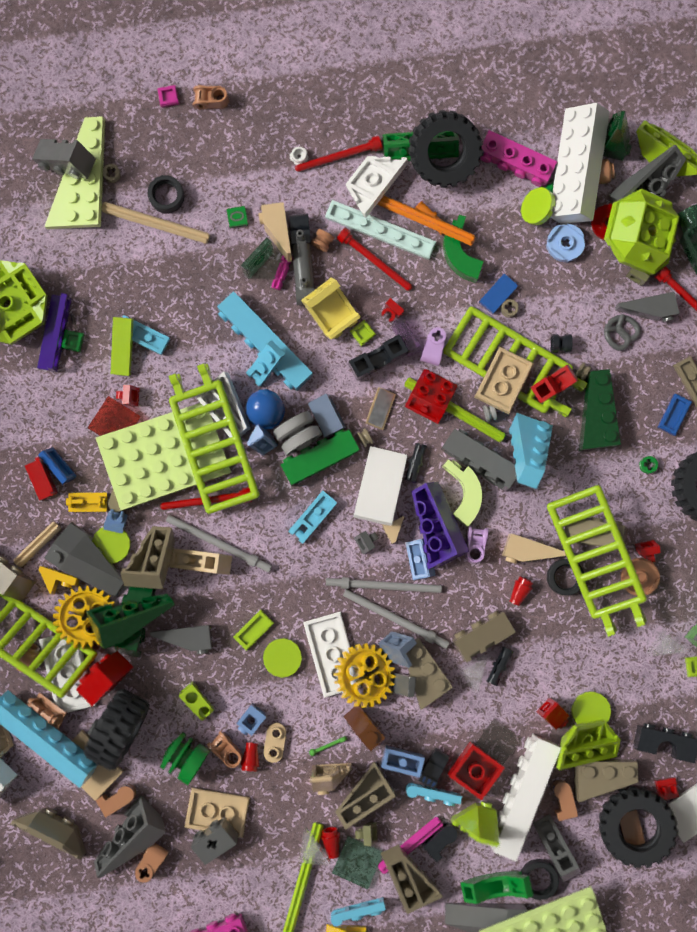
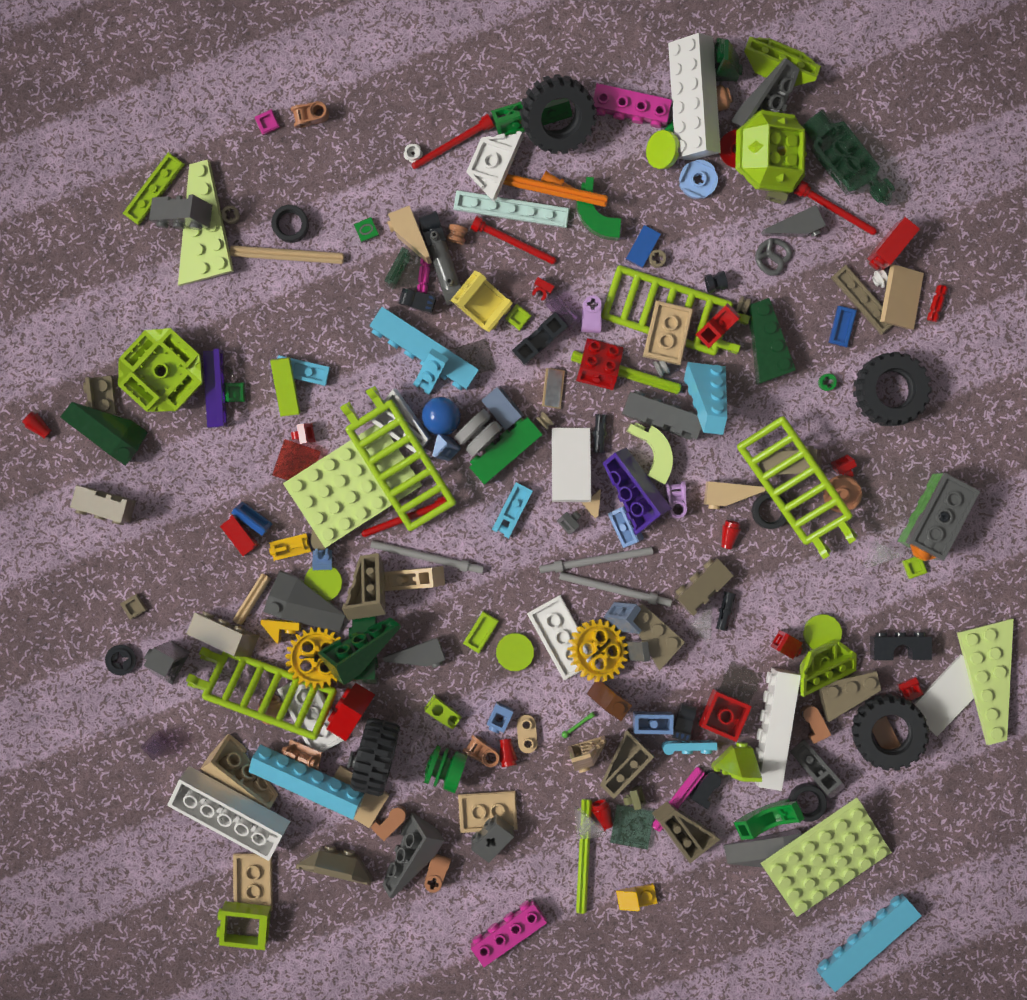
camera: 15 degrees left, 5 degrees up
(48, 129) = (154, 187): none -> lime tile
(270, 294) = (417, 300): none -> black leg
(315, 359) = (477, 354): none -> clear smoke piece
(357, 911) = (642, 871): medium azure plate -> none

